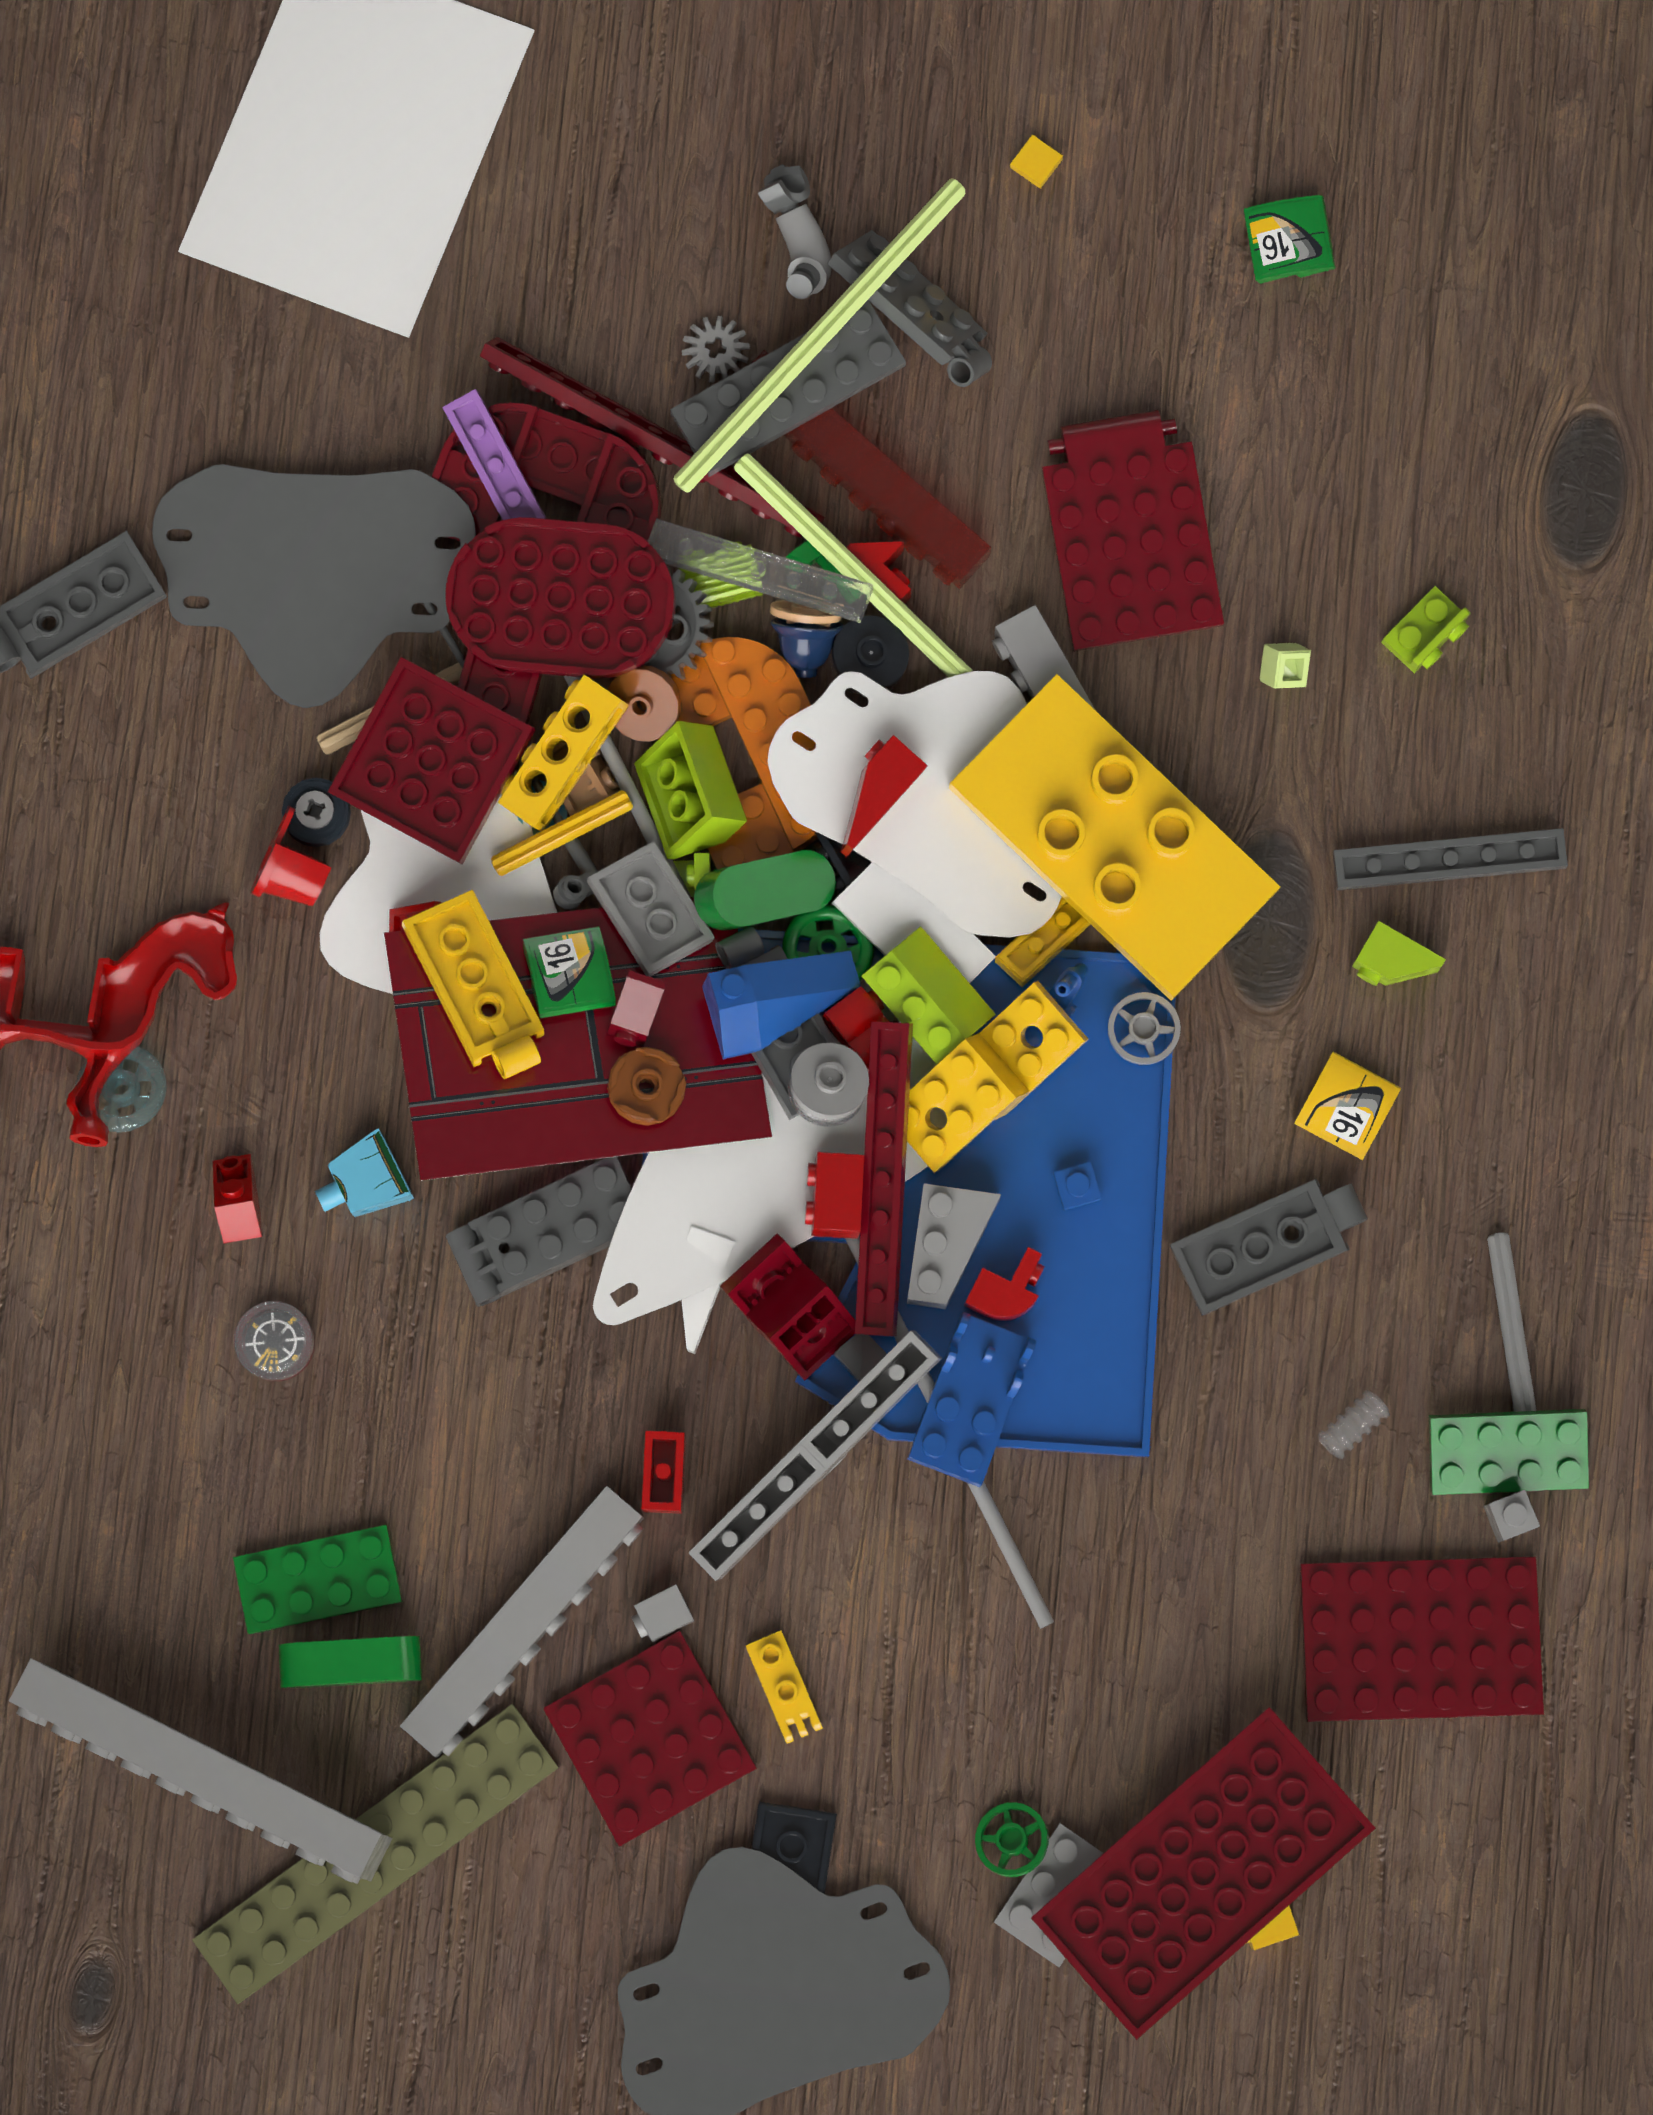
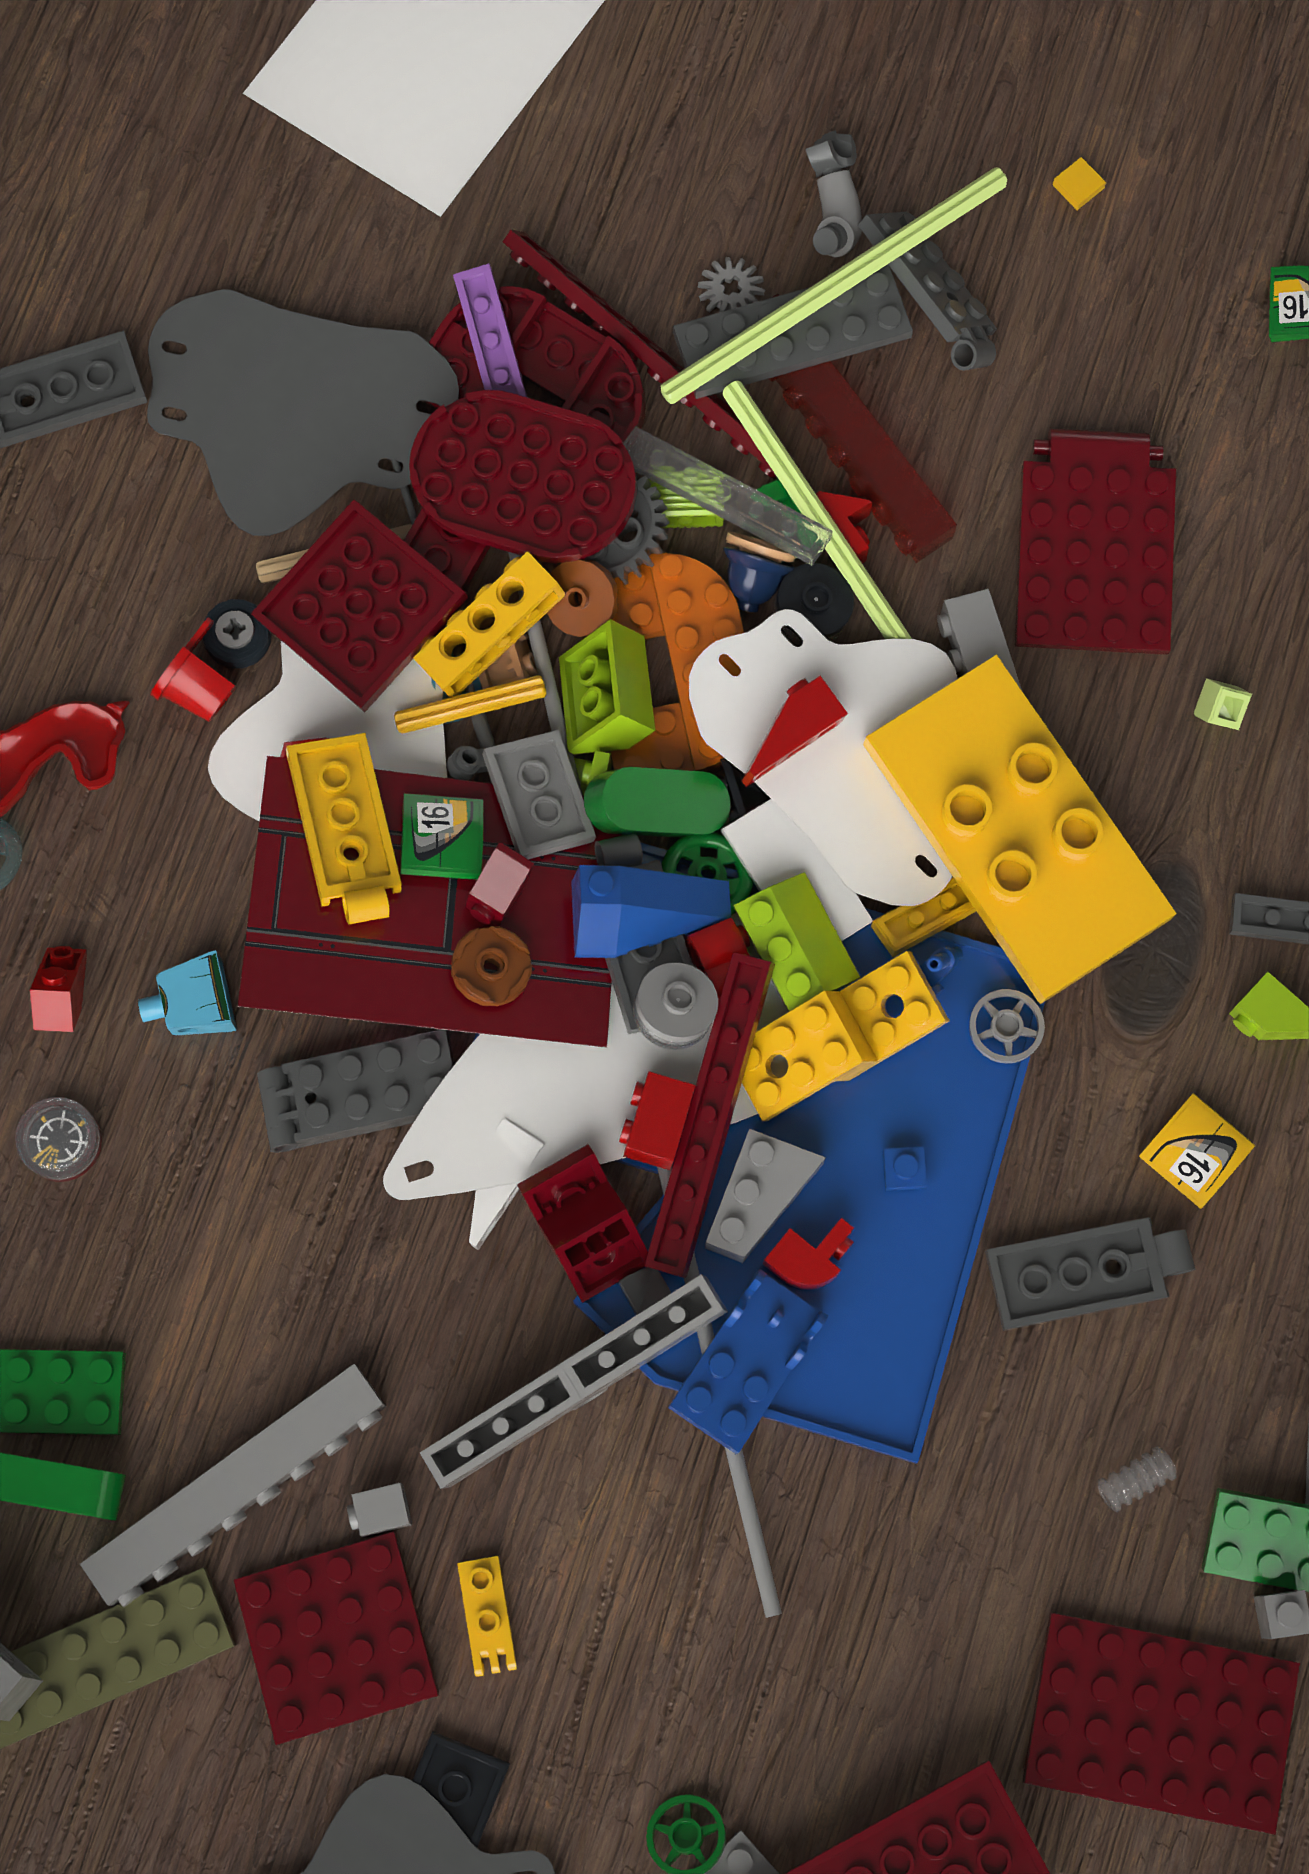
camera: 10 degrees right, 5 degrees down
(663, 1472) = (416, 1363): red brick -> none

